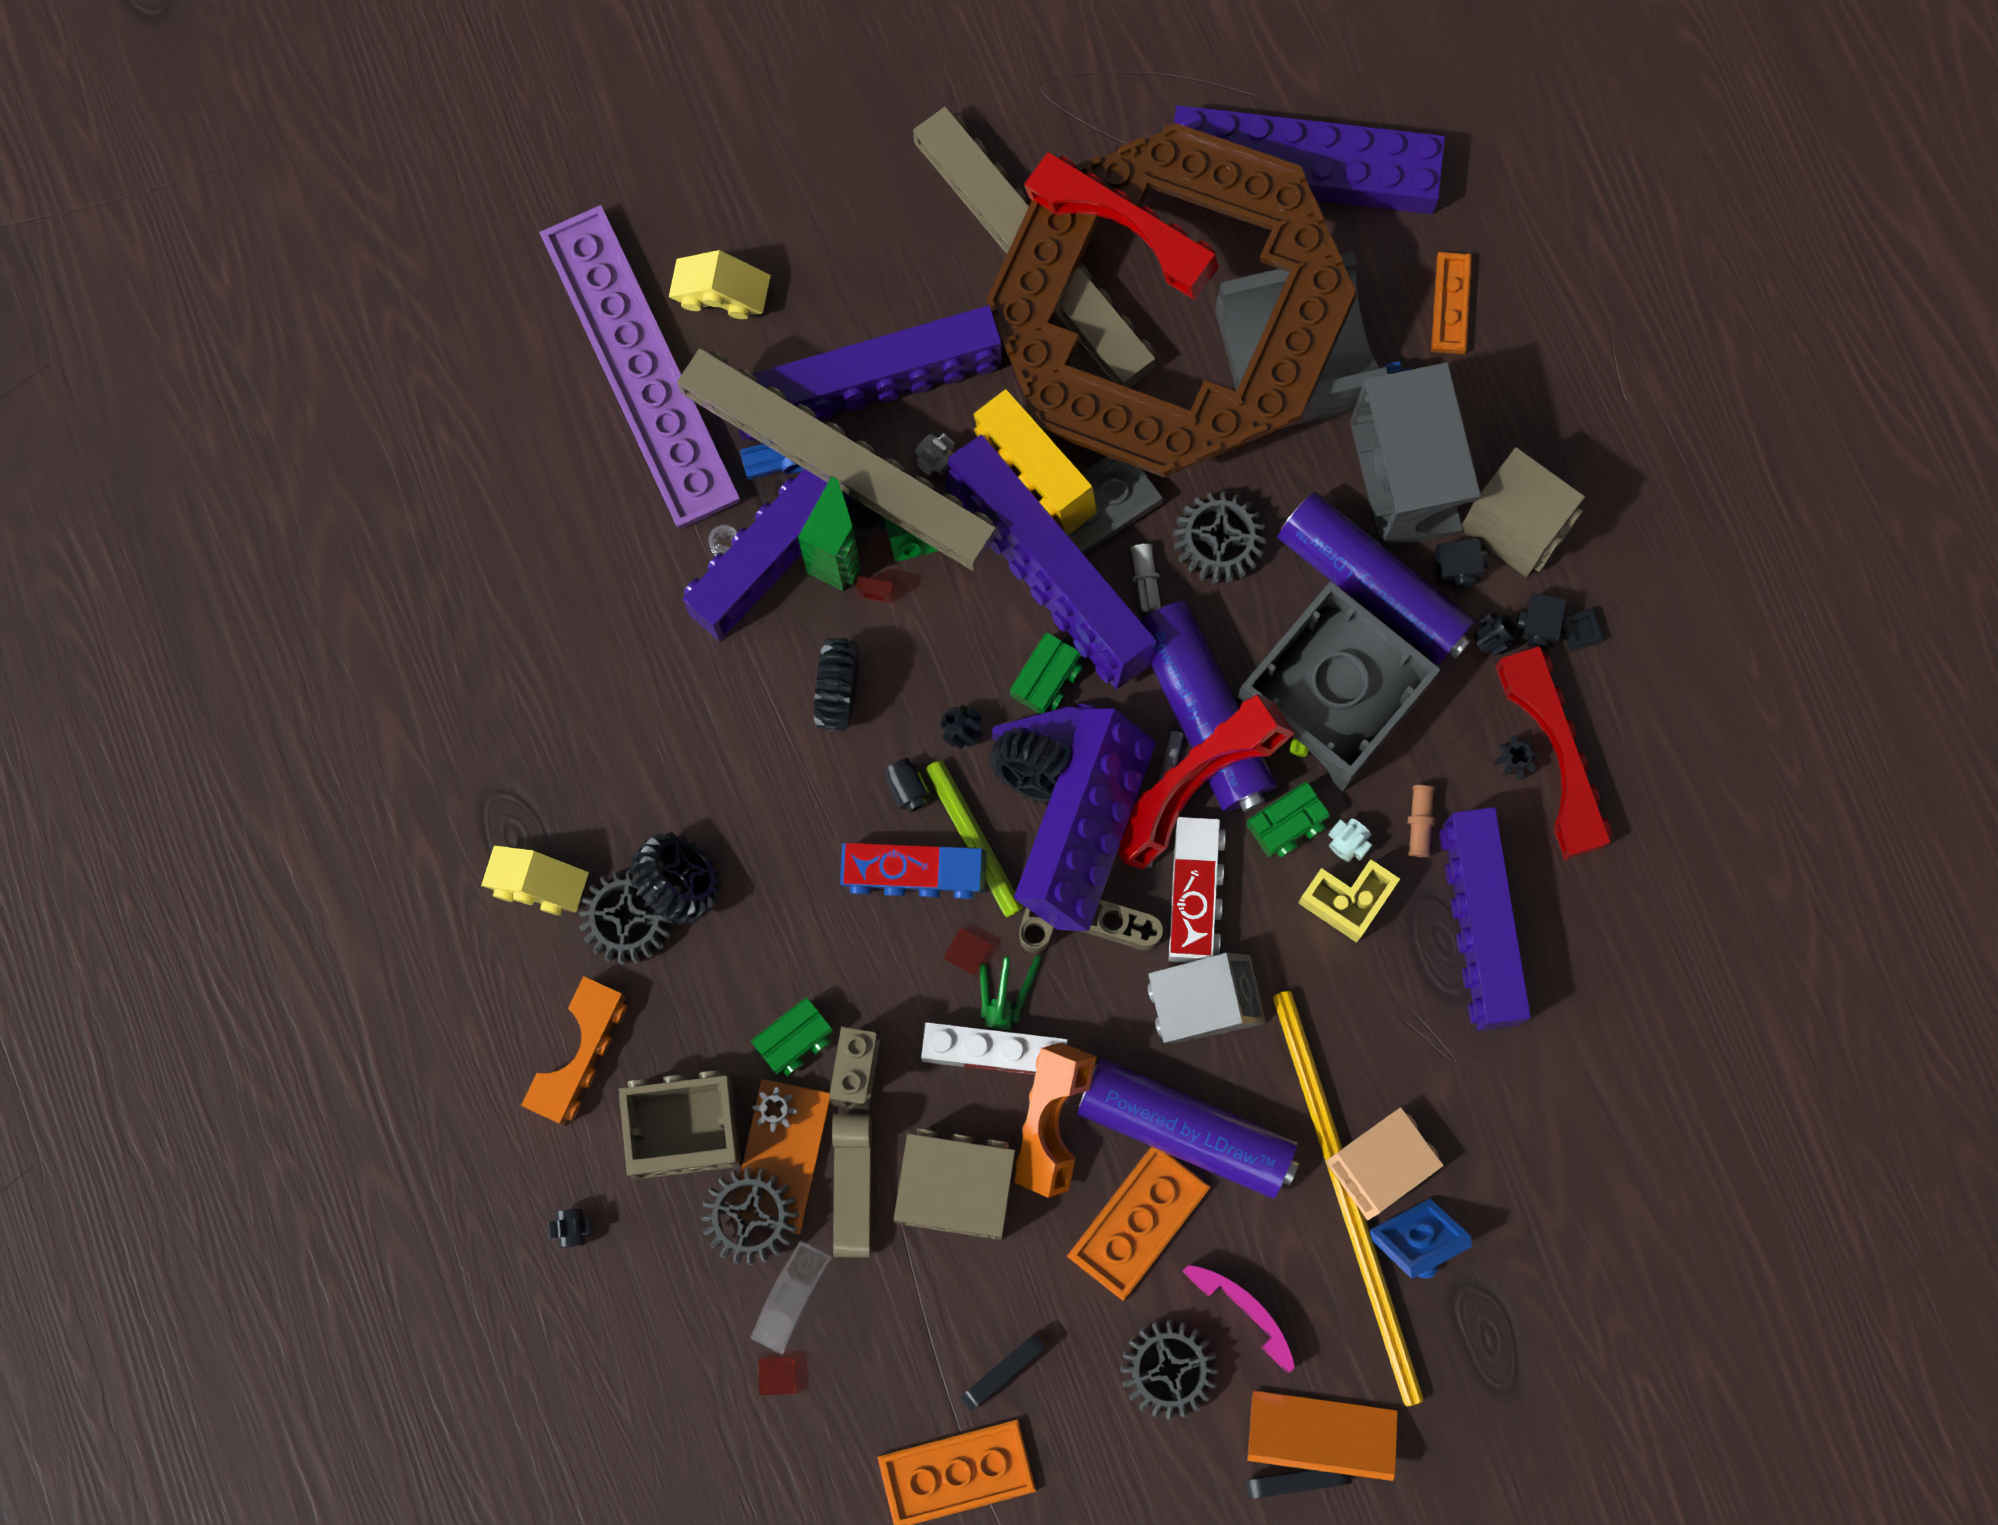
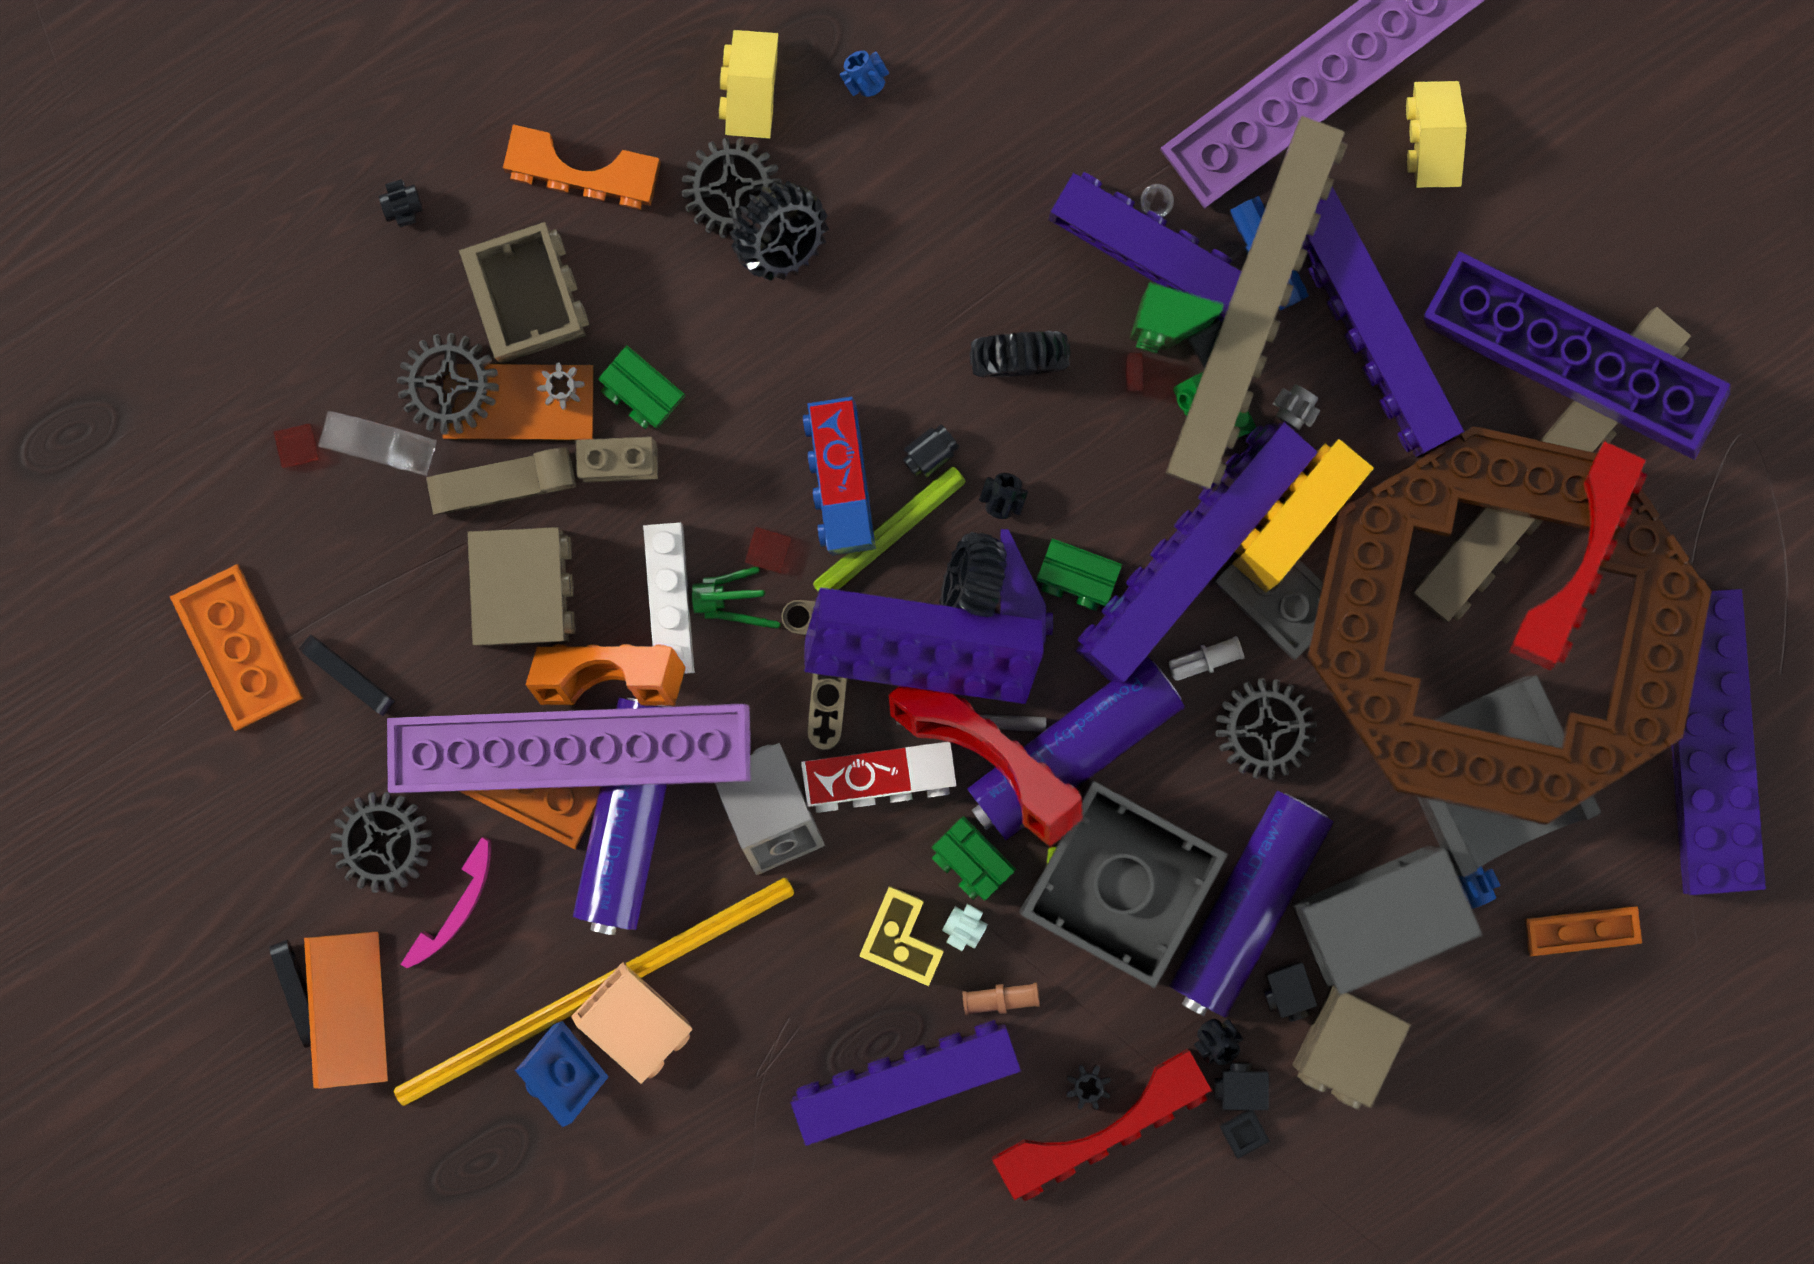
camera: 80 degrees right, 10 degrees up
(549, 775) = (864, 73): none -> blue gear
(942, 199) = (1577, 355): none -> dark purple brick
(1117, 1168) = (569, 749): none -> medium lavender plate

